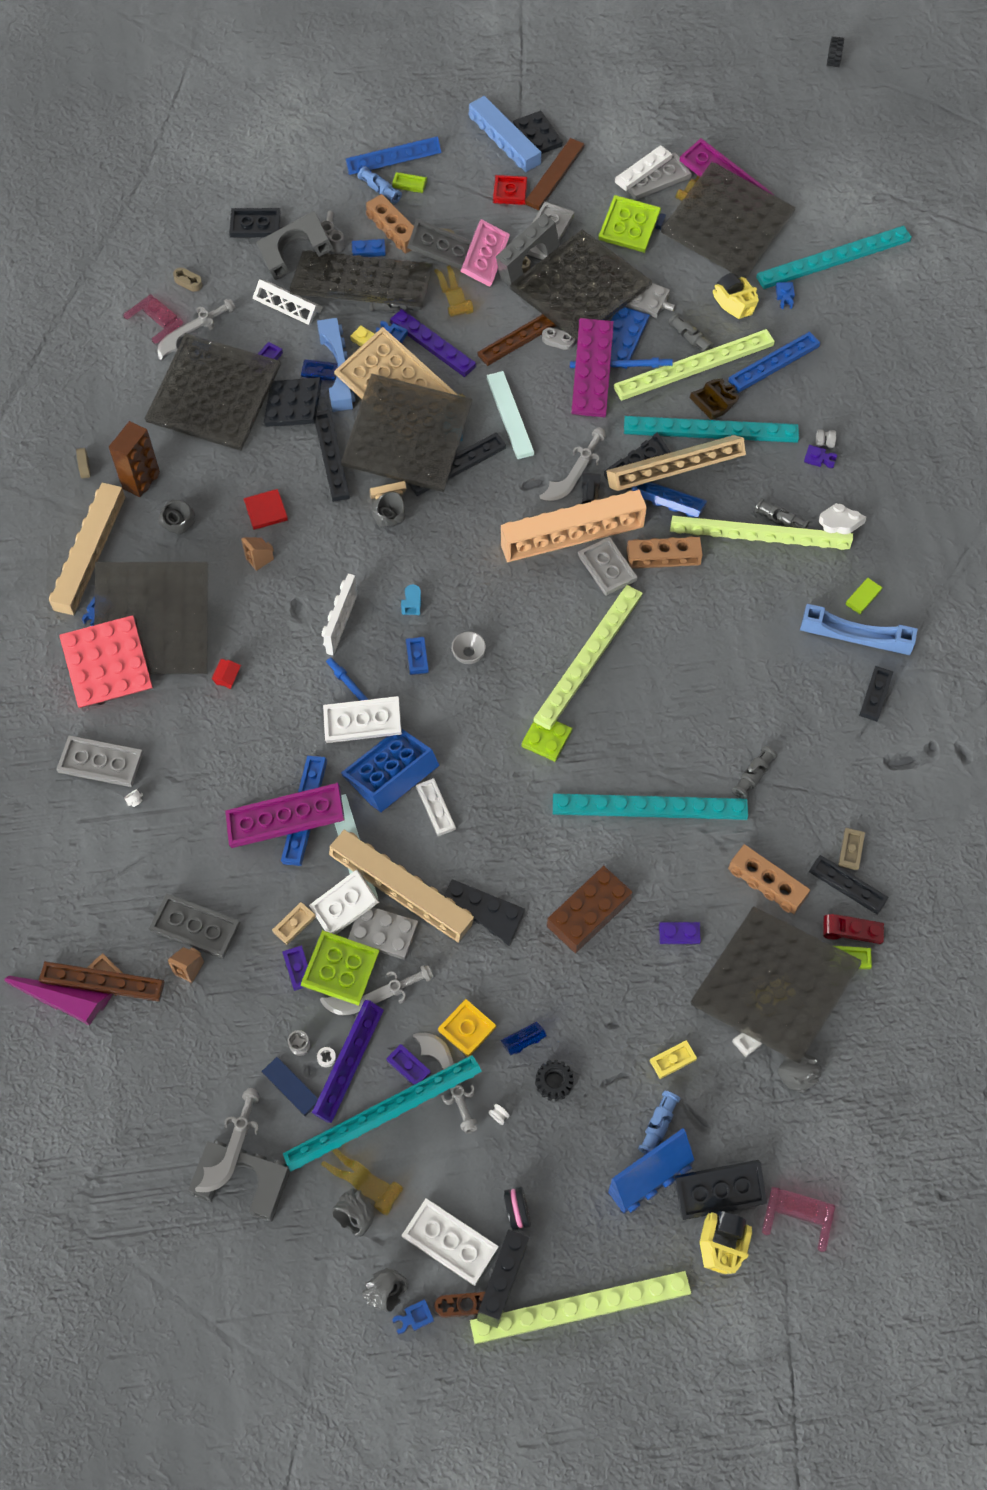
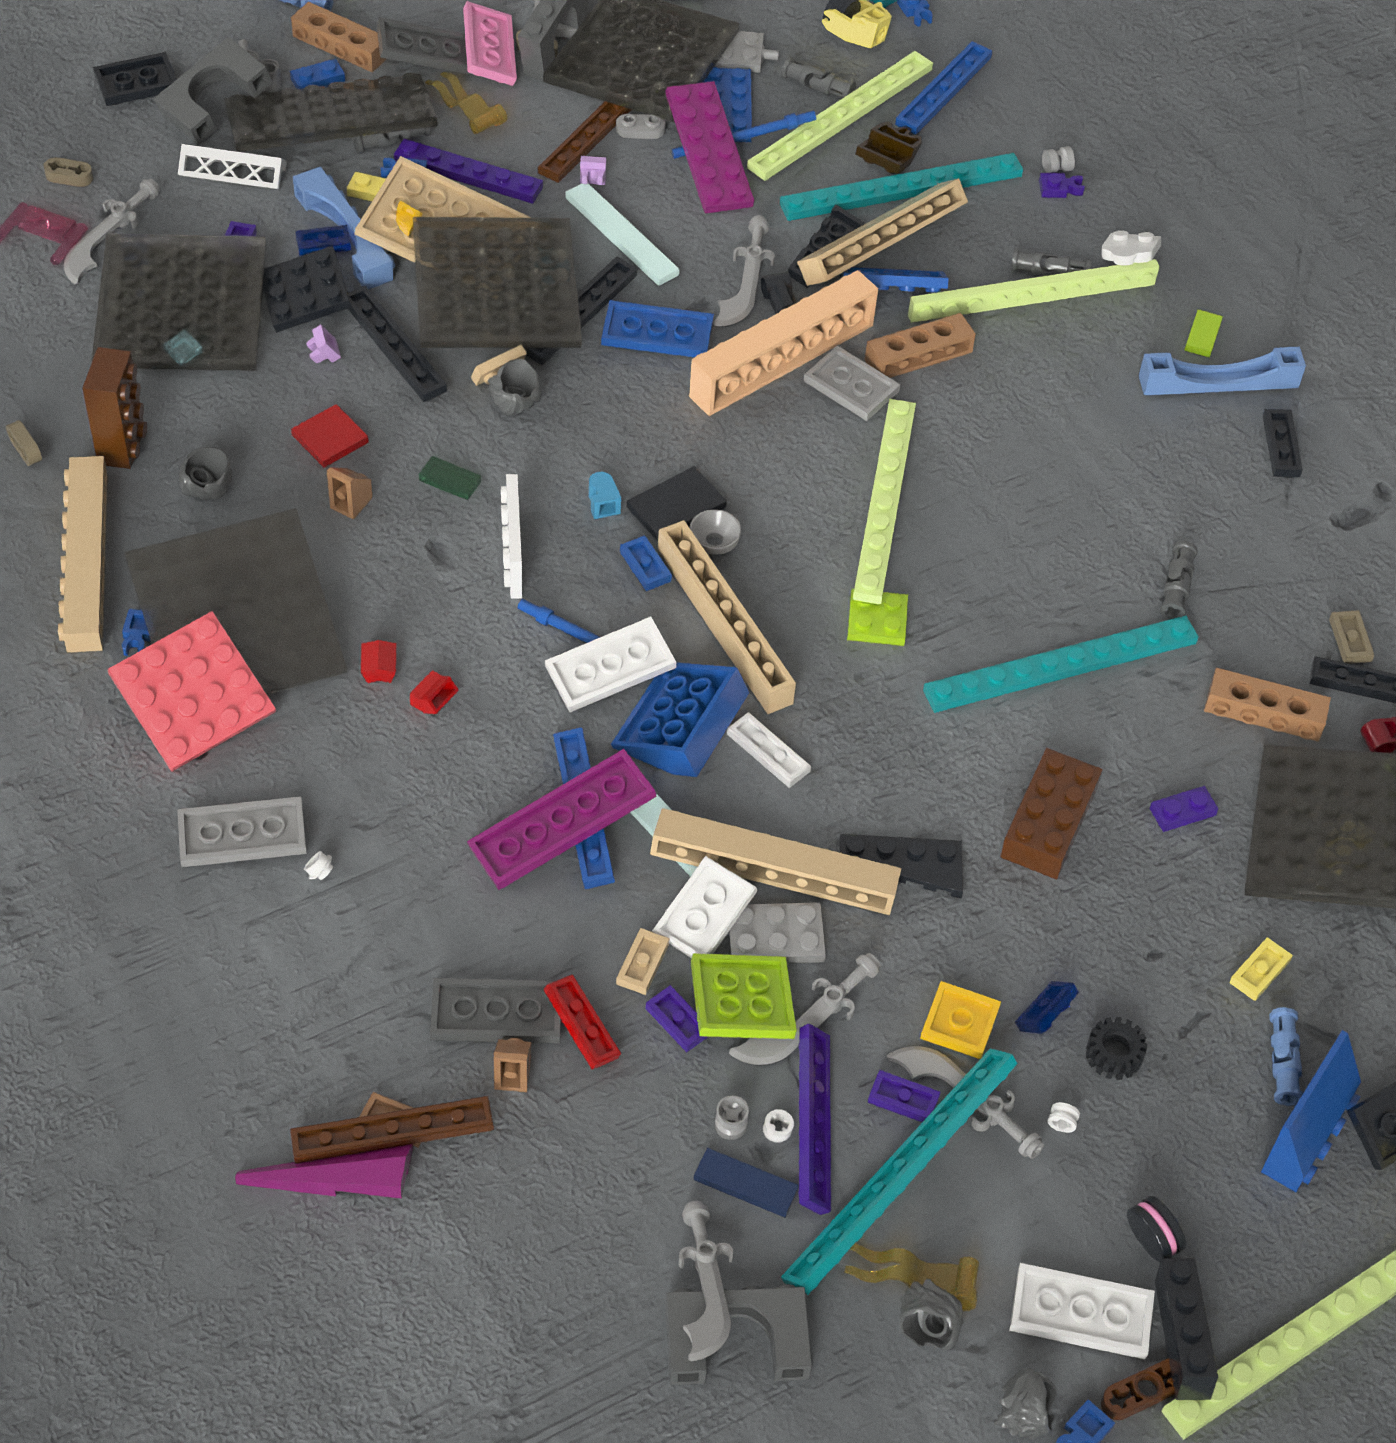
camera: 25 degrees left, 10 degrees down
(200, 424) = (182, 347): none -> clear light blue tile
(239, 951) = (582, 1021): none -> red tile
(249, 705) = (433, 693): none -> red piece
(288, 445) = (323, 346): none -> lavender tile
(325, 560) = (450, 477): none -> clear green tile
(369, 368) = (405, 216): none -> yellow tile
(447, 709) = (726, 617): none -> tan brick
(455, 618) = (675, 501): none -> black tile
(500, 491) = (657, 329): none -> blue plate
(510, 364) = (593, 170): none -> lavender tile
(746, 1044) = (1344, 918): white tile -> none

